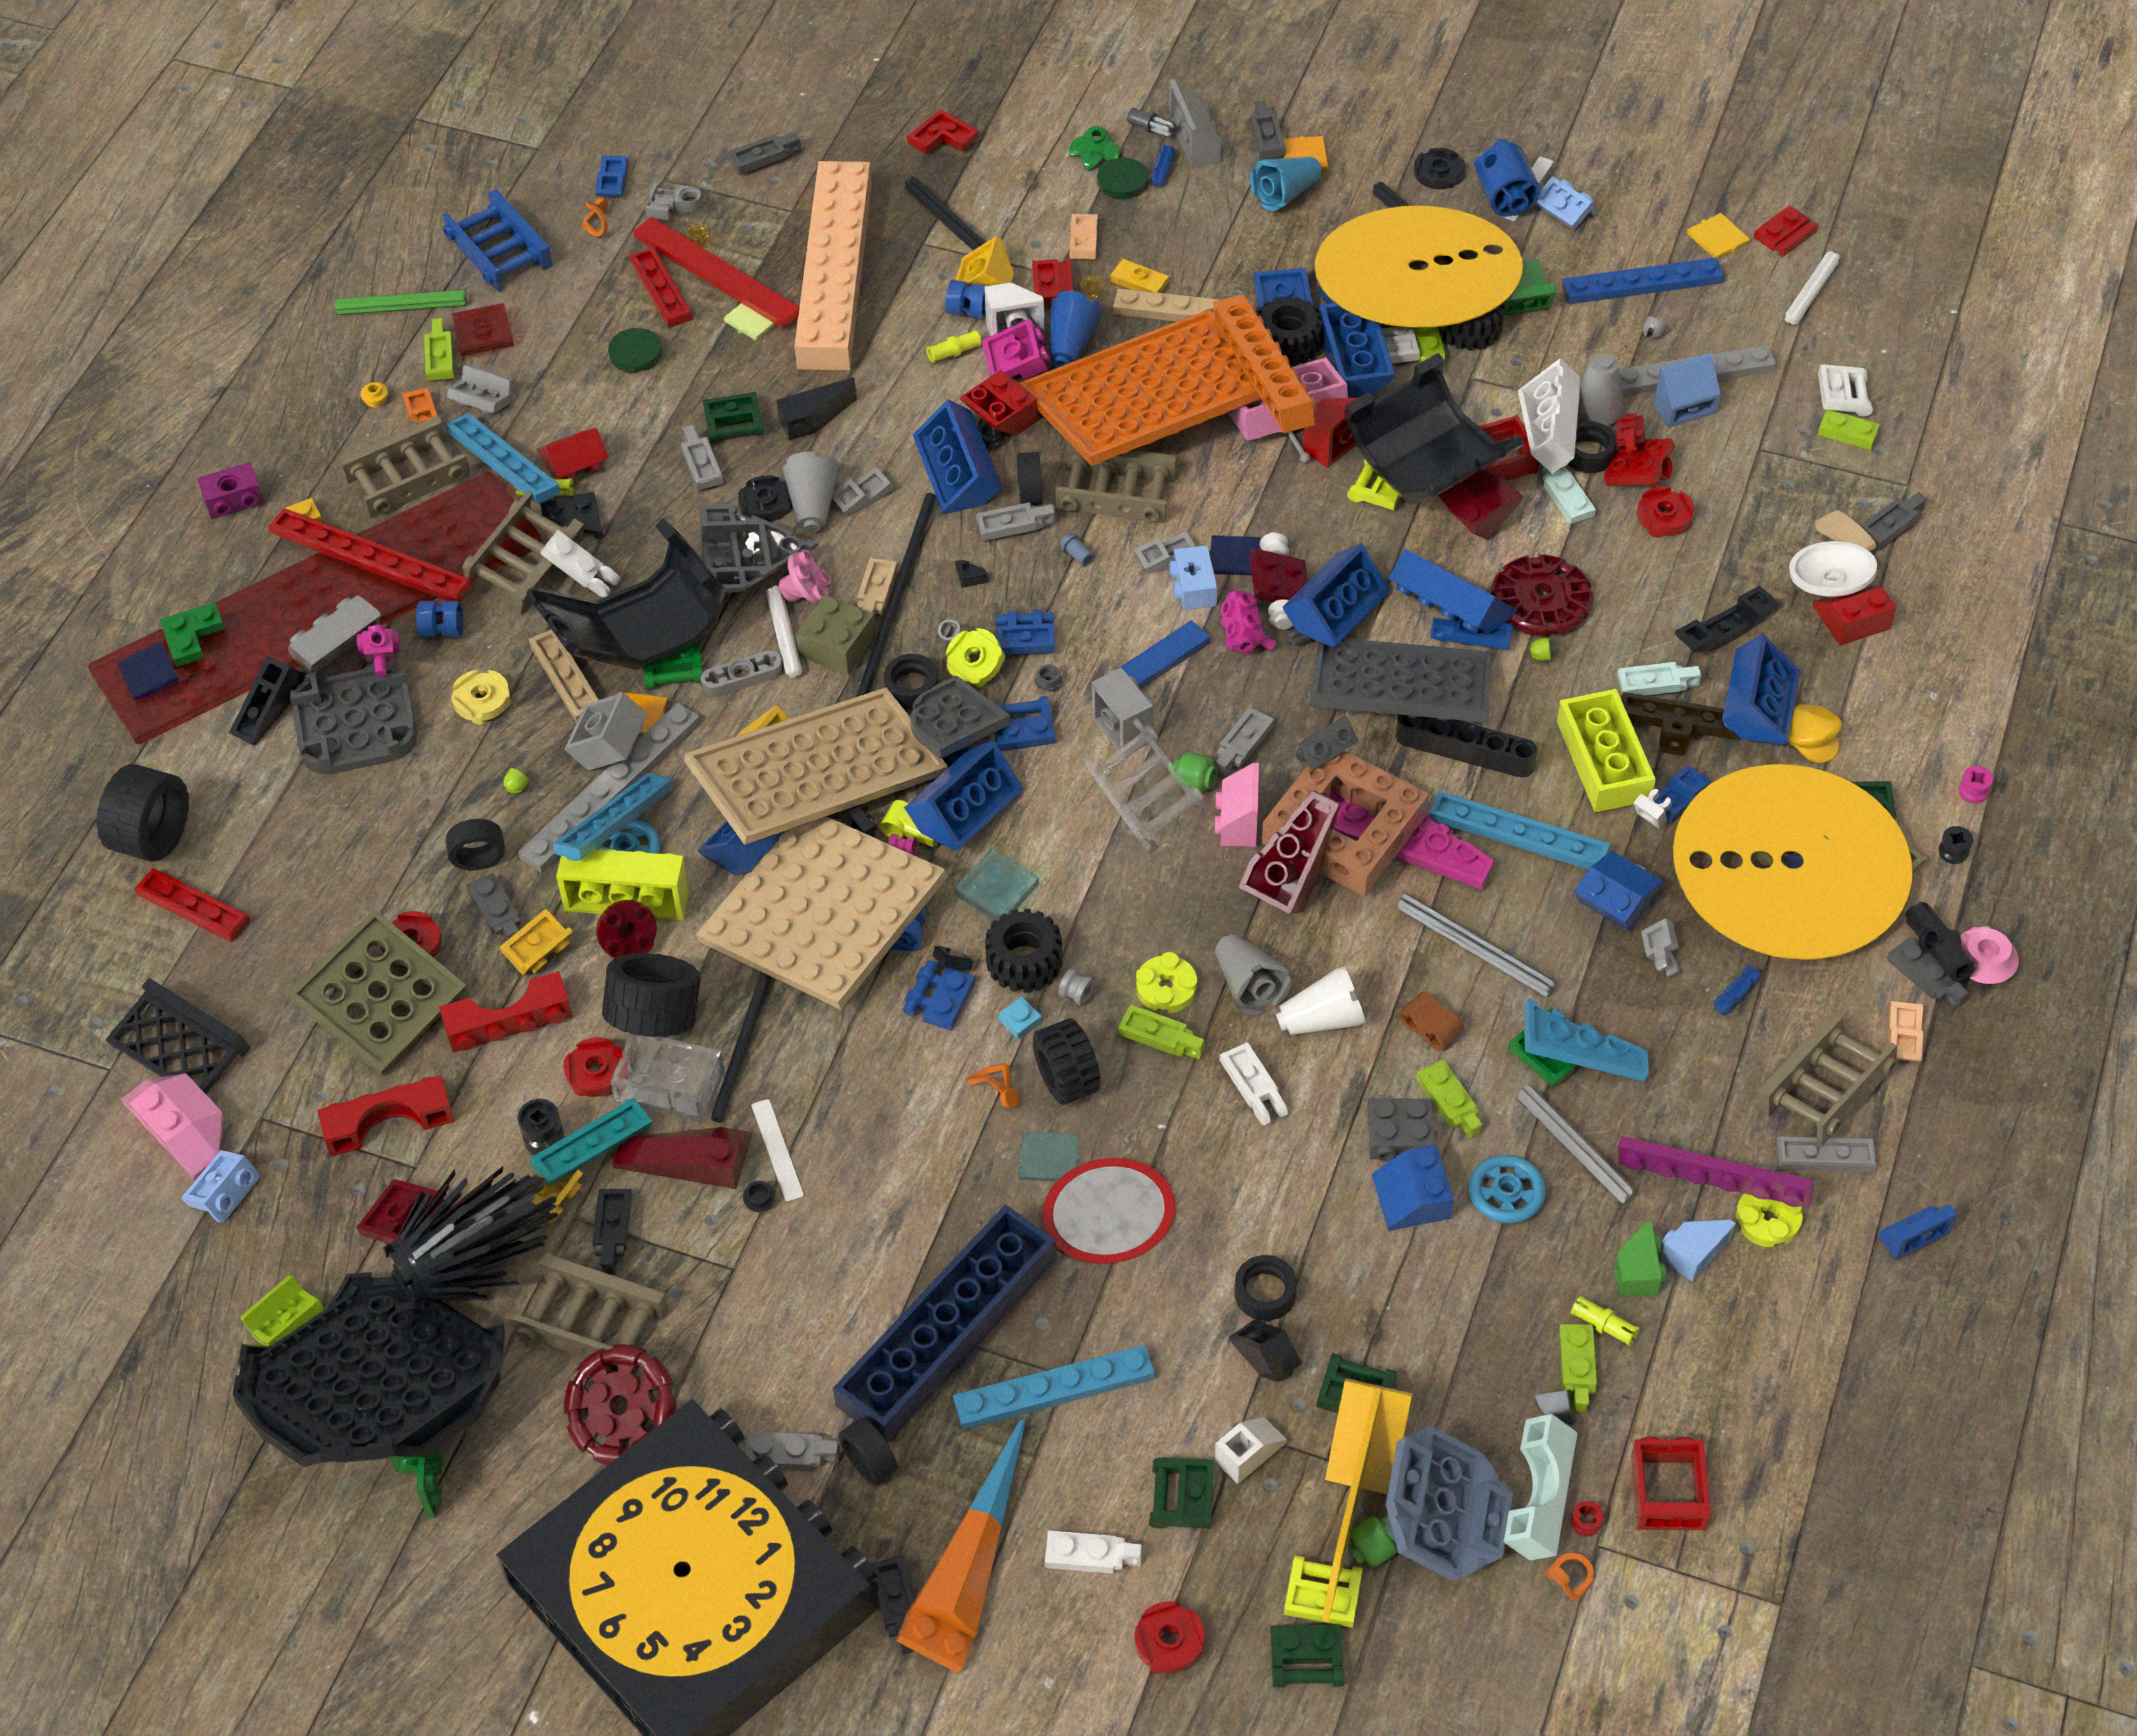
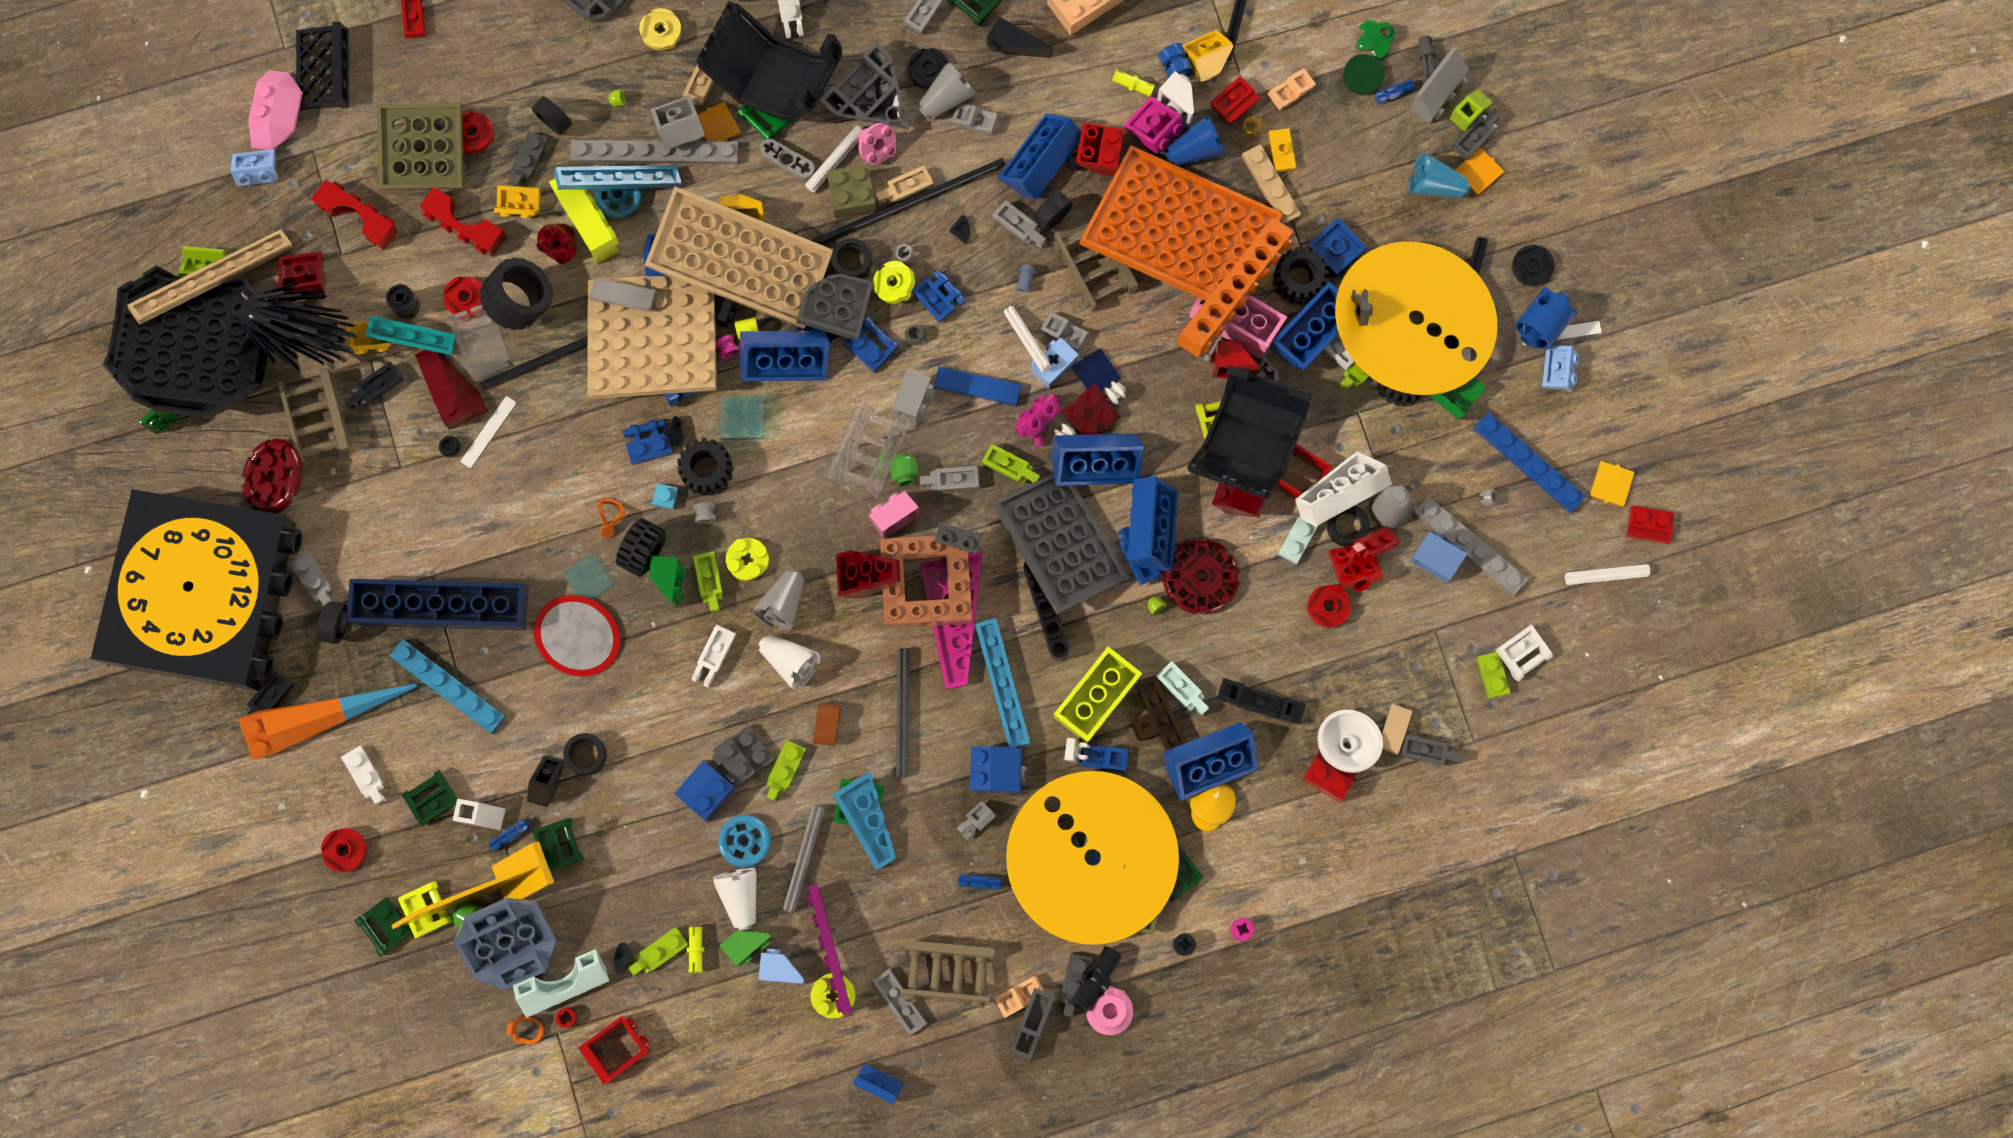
camera: 50 degrees right, 25 degrees up
(311, 1305) = (210, 276): none -> tan tile
(750, 900) = (622, 294): none -> light grey tile
(1128, 1062) = (667, 576): none -> green slope
(1148, 578) = (1027, 339): none -> white axle
(1239, 121) = (1470, 109): none -> lime slope
(1274, 681) = (1009, 465): none -> lime hinge
(1300, 1435) = (509, 835): none -> blue axle
(1375, 285) = (1363, 309): none -> plate
(1575, 1228) = (738, 896): none -> white cone
(1951, 1038) = (1031, 1024): none -> dark grey slope

